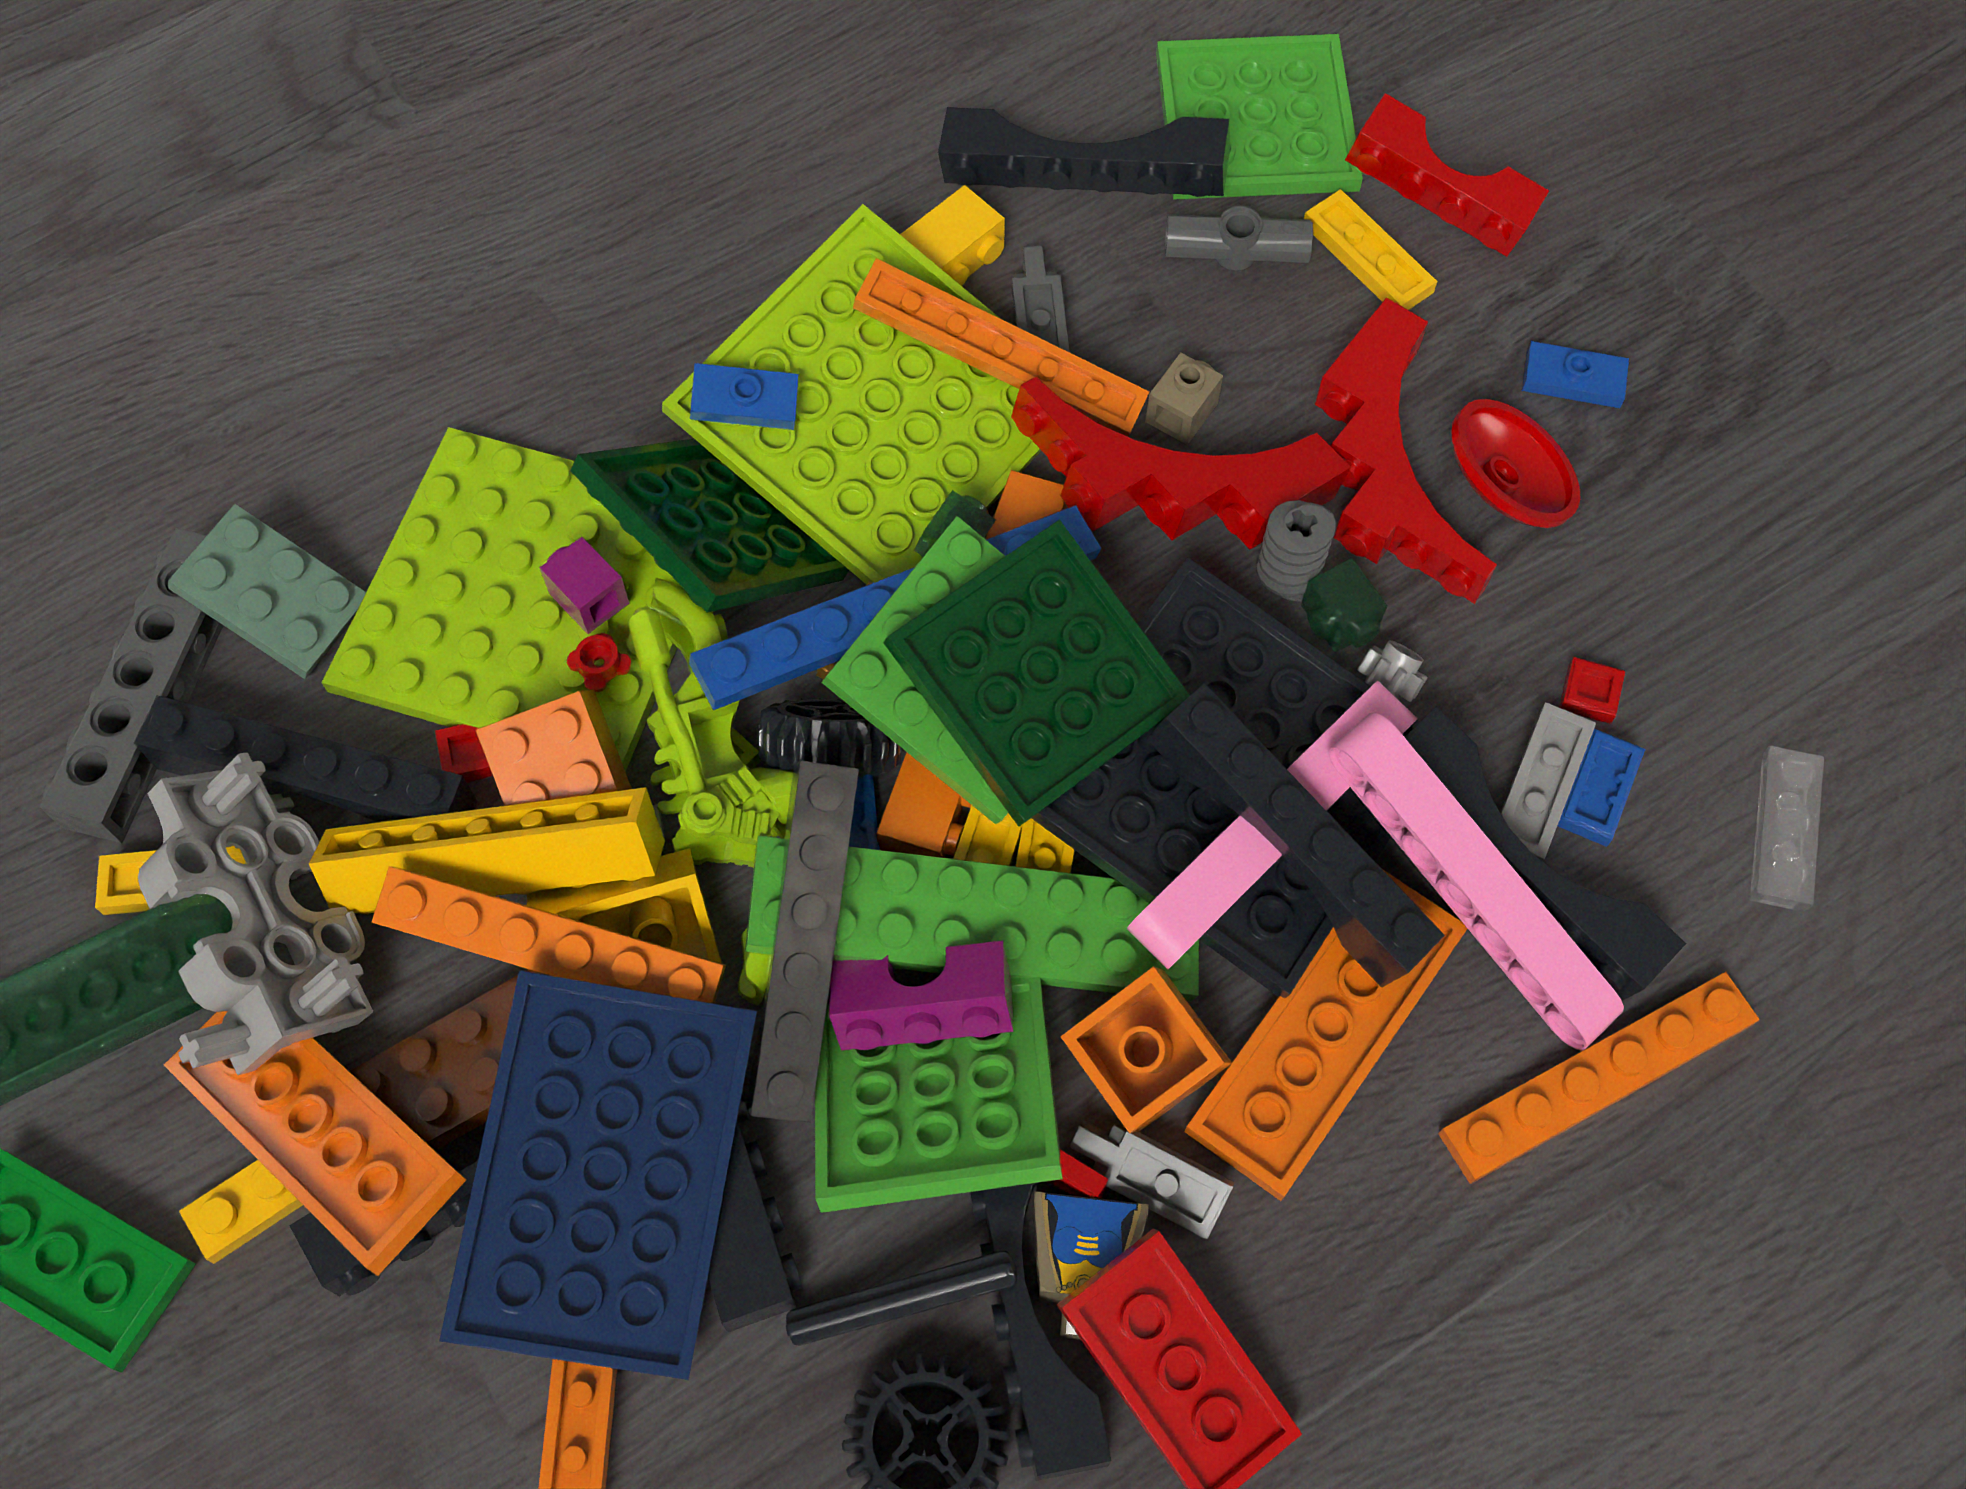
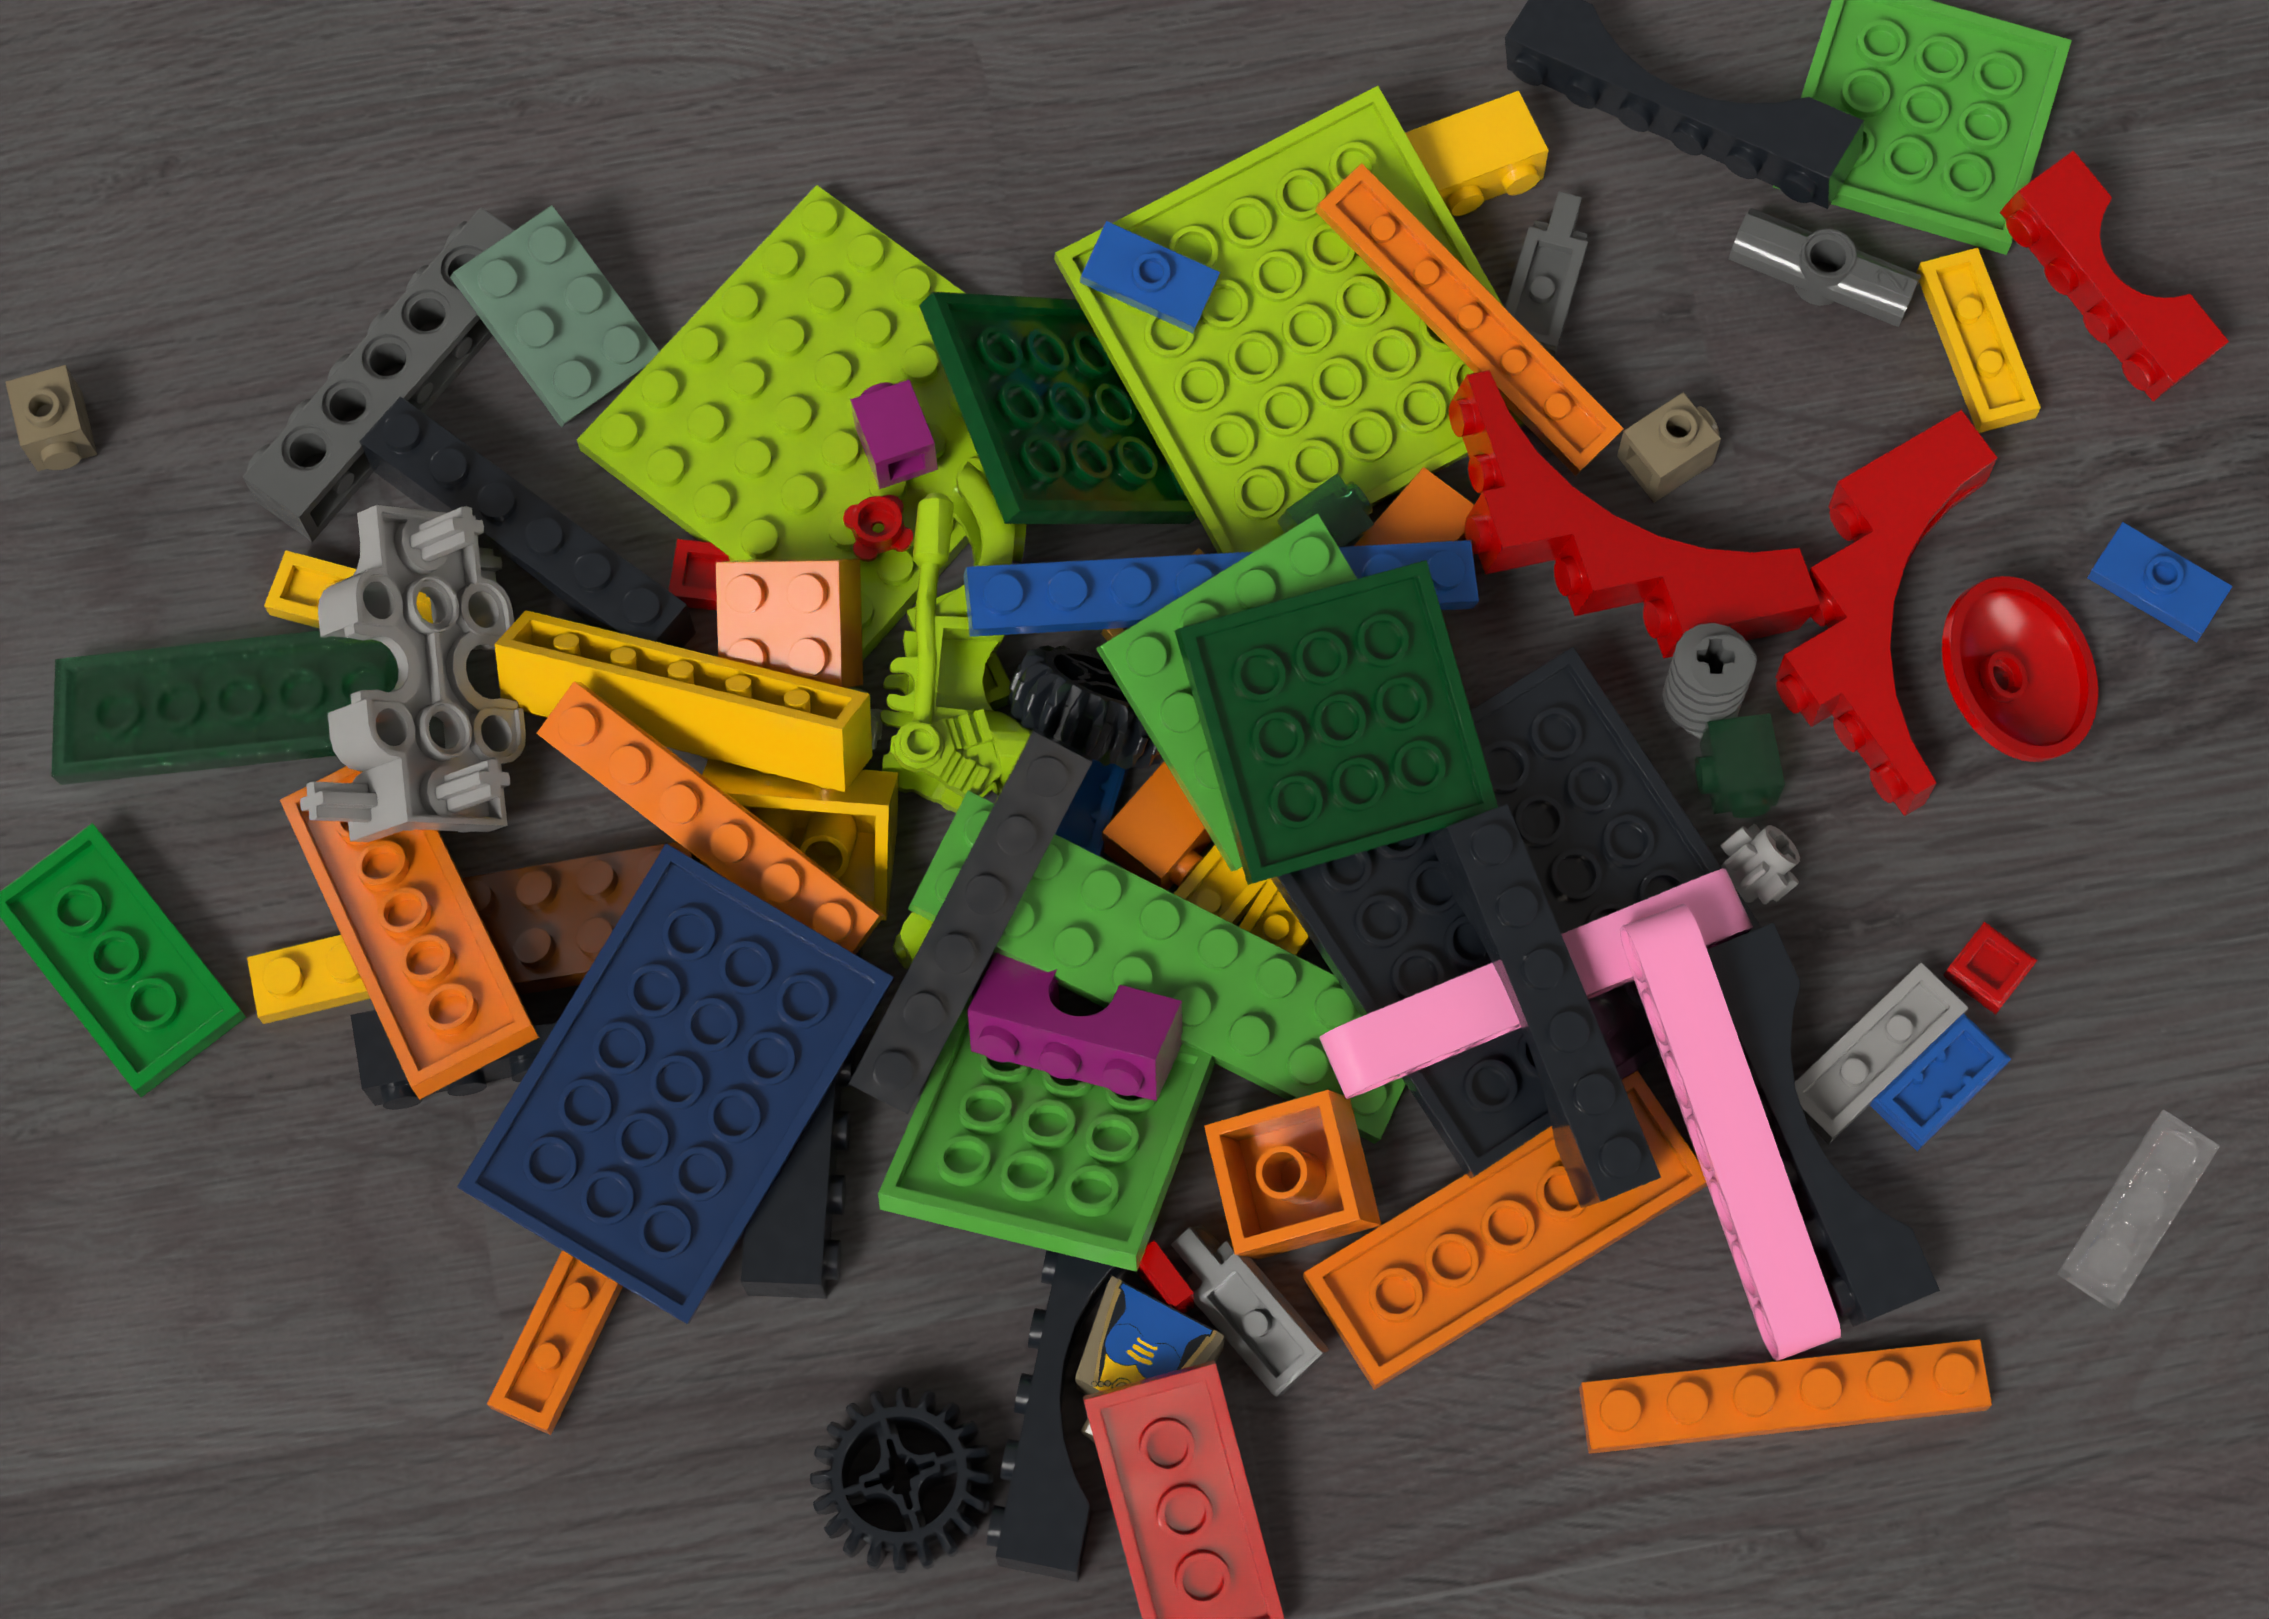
camera: 25 degrees right, 5 degrees up
(901, 1298) = (932, 1329): black axle -> none

